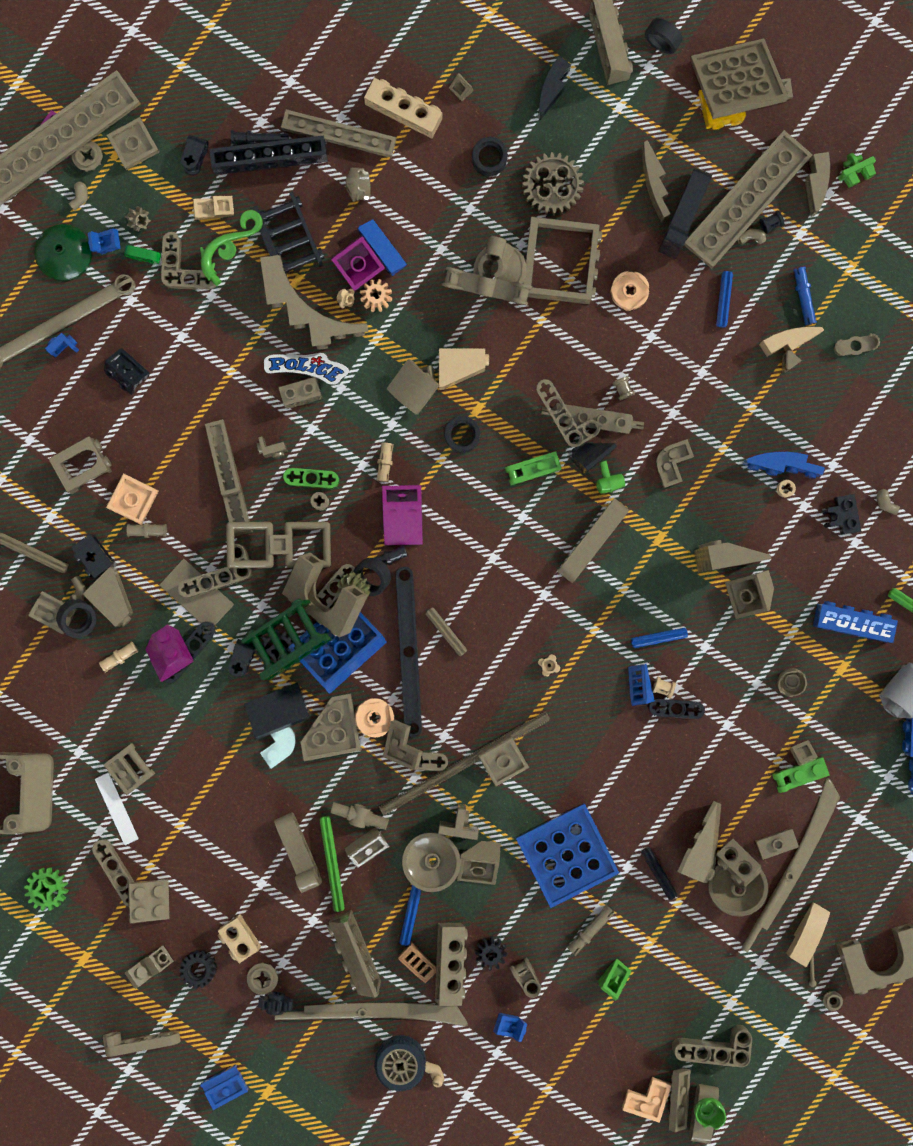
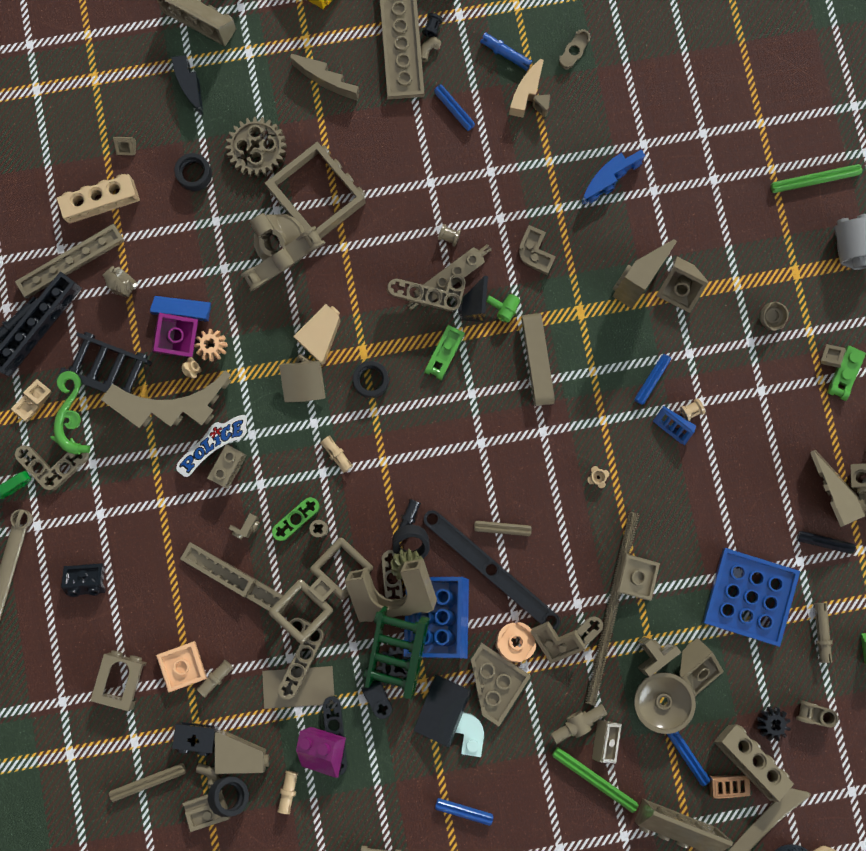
camera: 40 degrees left, 5 degrees down
(58, 344) = (14, 612): blue bracket -> none
(222, 792) = (464, 811): none -> blue axle
(298, 852) = (564, 797): dark tan beam -> none
(402, 515) = (387, 477): magenta slope -> none
(510, 1026) = (842, 761): blue bracket -> none
(627, 301) = (390, 174): light nougat plate -> none
(685, 213) = (376, 94): black beam -> none
(691, 704) = (707, 415): black beam -> none
(789, 493) = (634, 186): tan bush -> none
(844, 515) = (687, 169): black plate -> none
(855, 623) = (772, 233): blue brick -> none
(884, 502) = (705, 133): dark tan arm -> none

